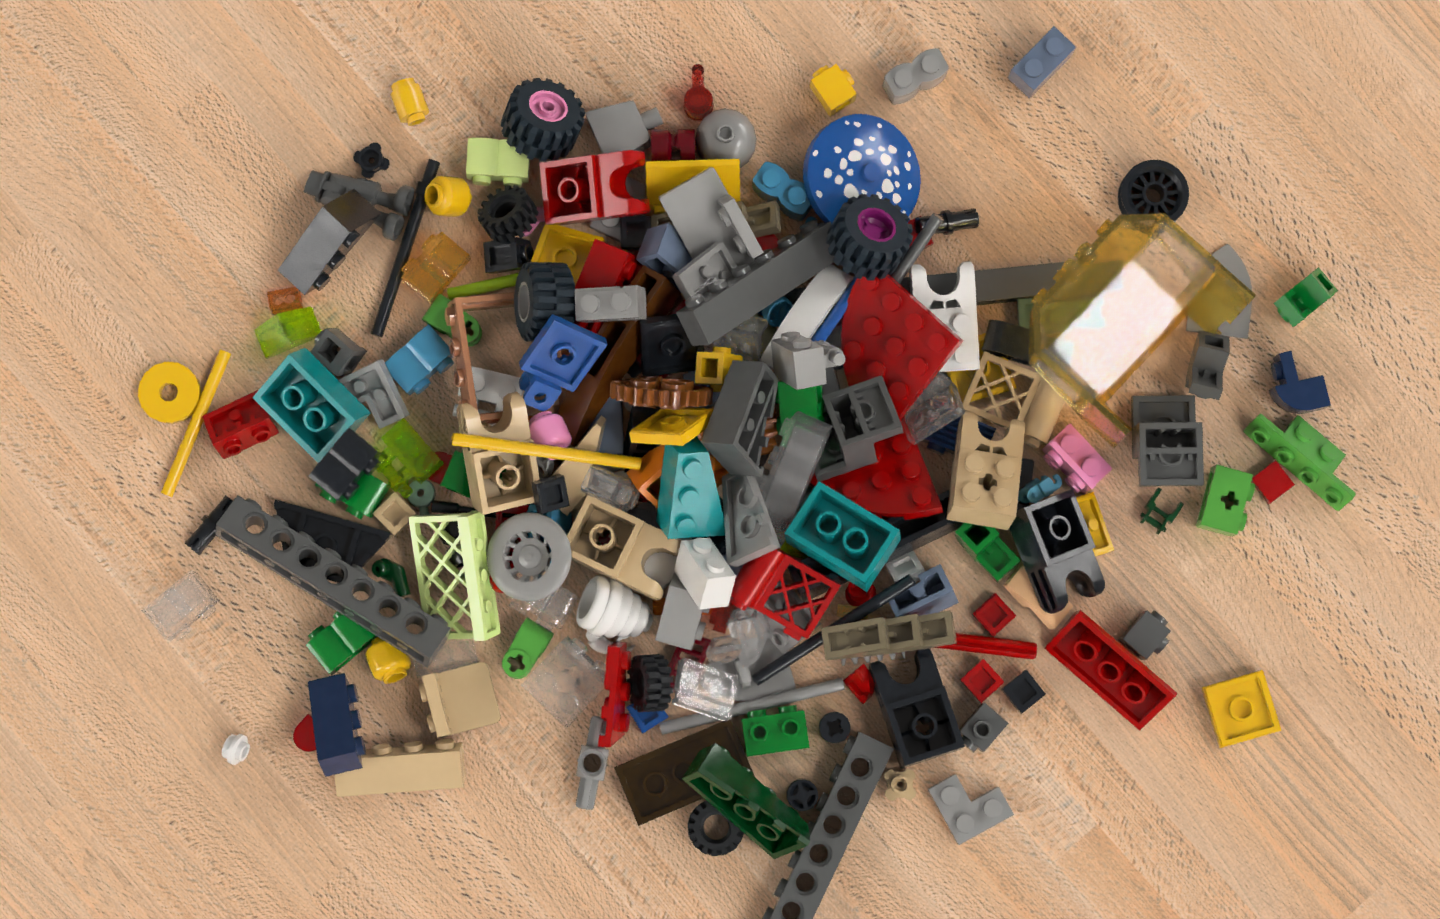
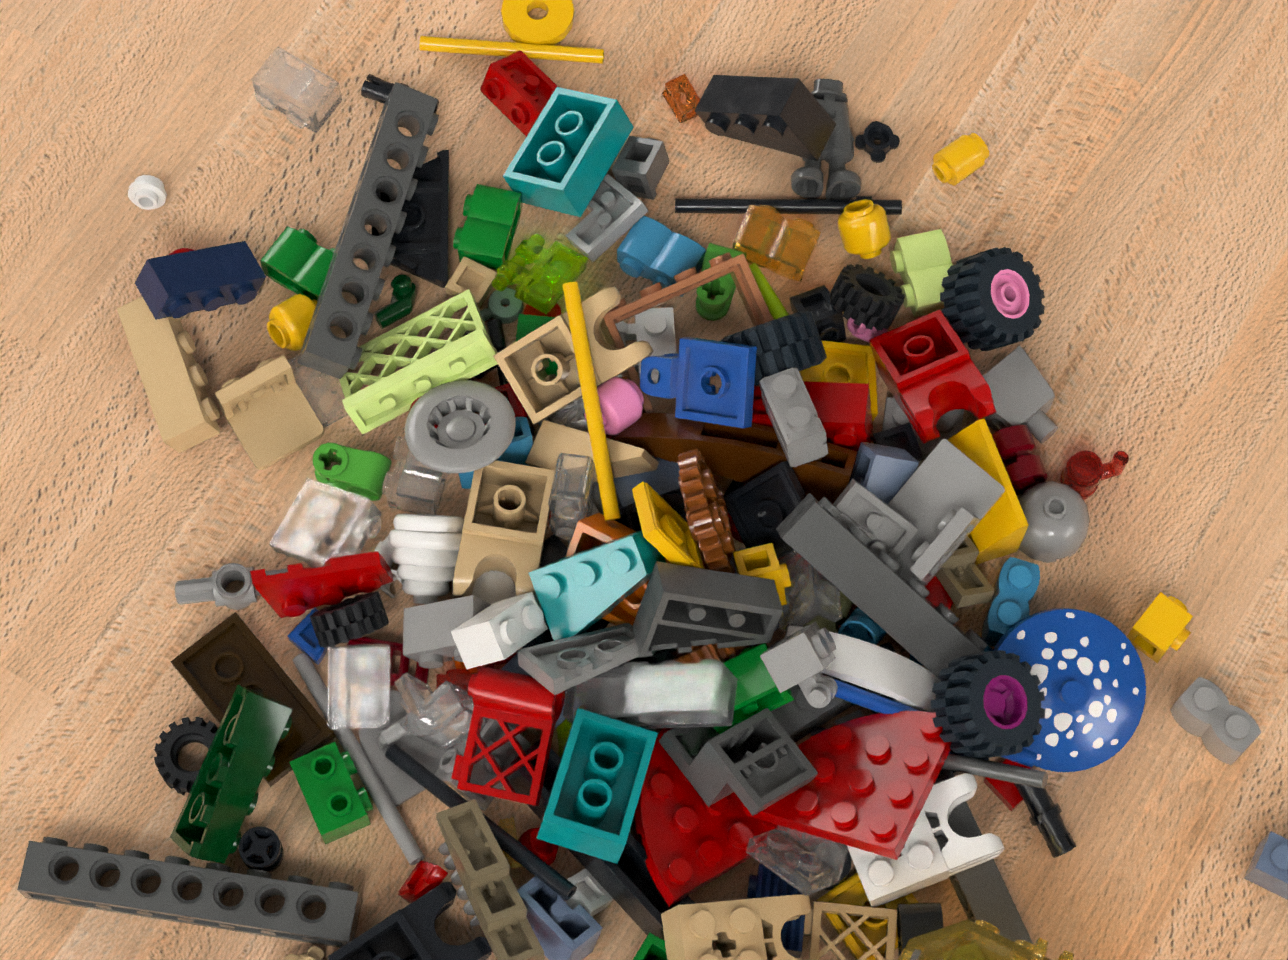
camera: 70 degrees right, 15 degrees down
(287, 331) = (651, 111): clear neon green slope -> none
(345, 465) = (508, 201): black brick -> none
(550, 494) = (543, 428): black tile -> none
(830, 728) = (357, 872): black wheel -> none

